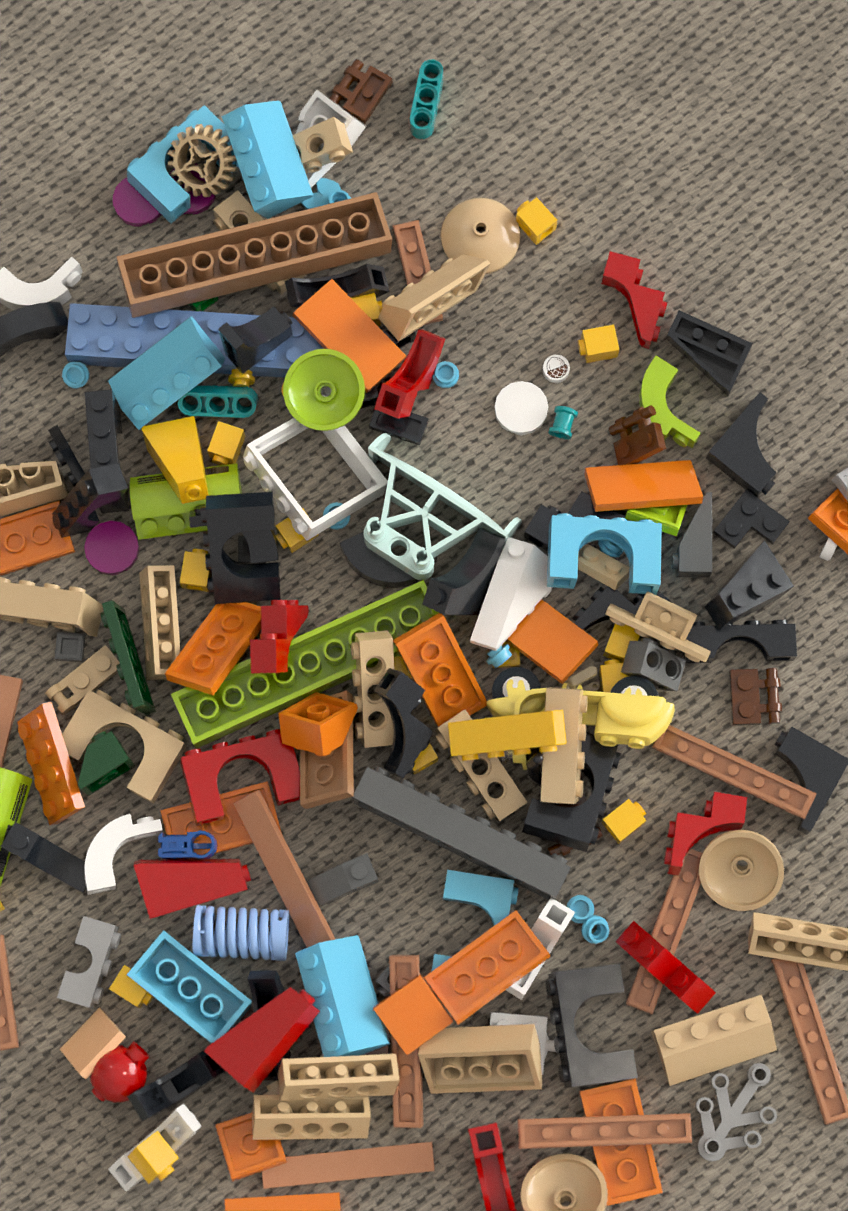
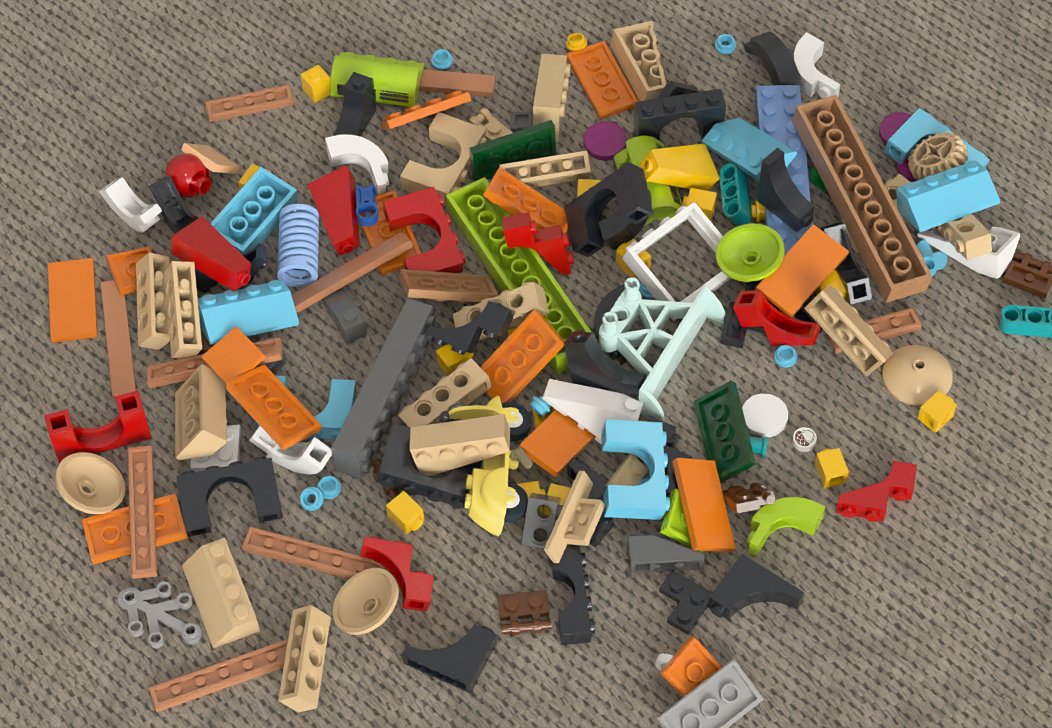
camera: 85 degrees right, 20 degrees down
(75, 374) = (744, 102): medium azure plate -> none
(85, 987) = (289, 159): light grey arch -> none
(96, 488) = (633, 100): black arch -> none
(103, 762) = (427, 142): dark green slope -> none
(153, 1158) = (121, 197): yellow brick -> none
(317, 723) = (468, 272): orange slope -> none
(507, 733) = (463, 393): yellow brick -> none
(548, 451) = (725, 431): none -> dark green plate
(665, 967) = (285, 537): red arch -> none
(710, 349) = (839, 552): black wedge -> none
(735, 771) = (453, 594): nougat tile -> none
(750, 588) = (618, 591): black wedge -> none

